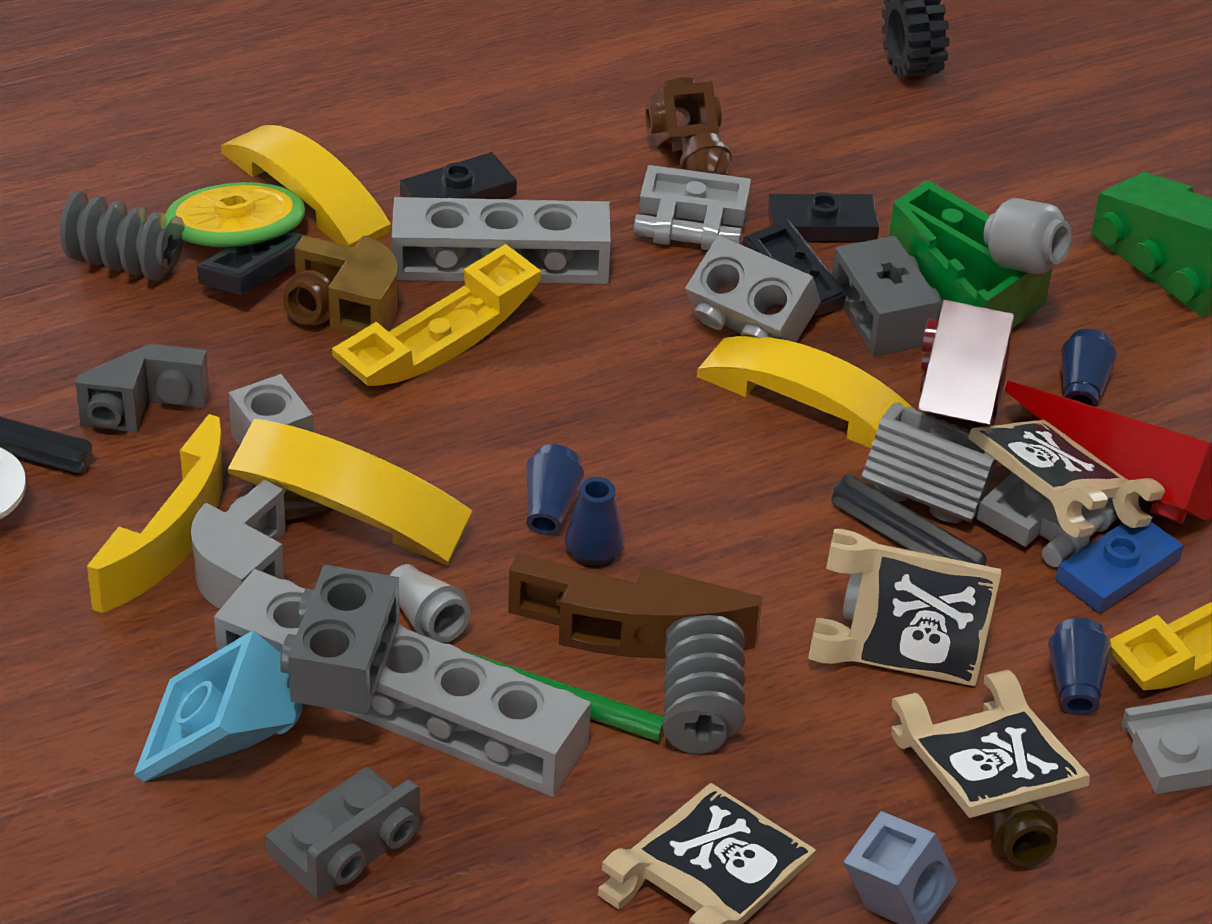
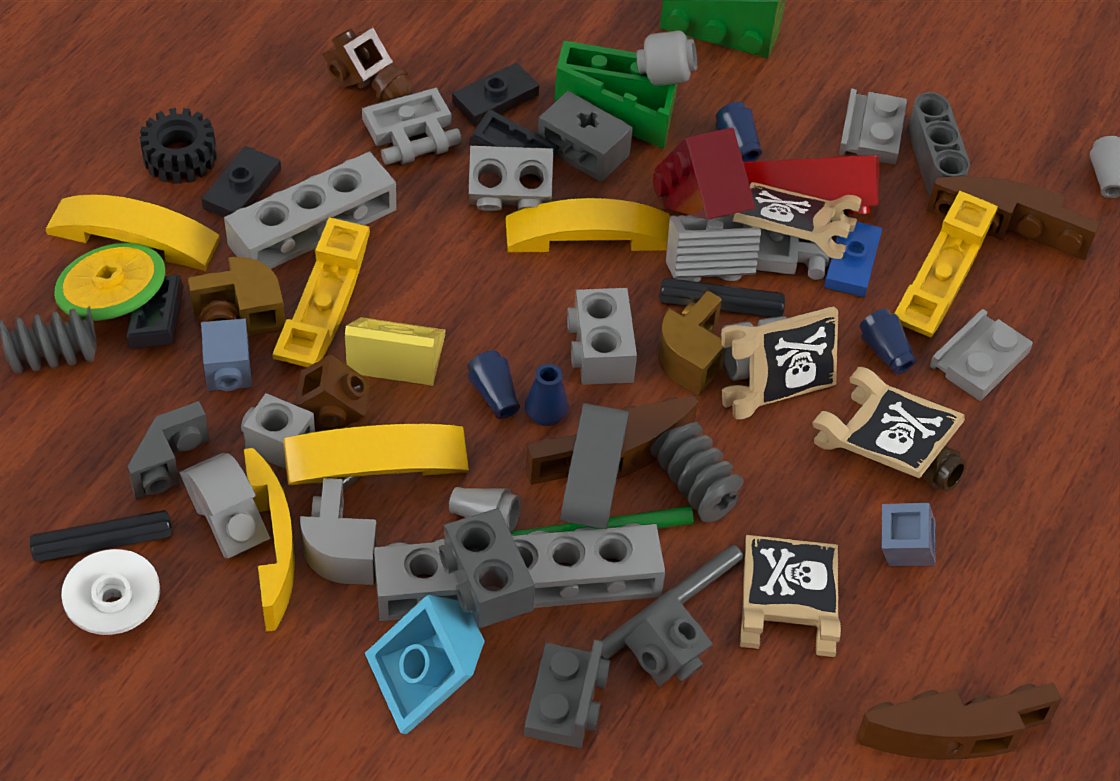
camera: 35 degrees left, 10 degrees up
(147, 458) = (226, 499): none -> light grey brick
(286, 329) = (226, 355): none -> sand blue brick
(358, 409) = (333, 393): none -> reddish brown brick
(421, 123) = (175, 129): none -> black tyre
(468, 405) = (394, 350): none -> light yellow slope
(498, 832) = (669, 643): none -> dark grey brick
(551, 803) = (683, 591): none -> dark grey bar
(562, 601) = (594, 466): none -> dark grey beam
(719, 498) = (603, 336): none -> light grey brick
(804, 549) = (687, 346): none -> pearl gold brick

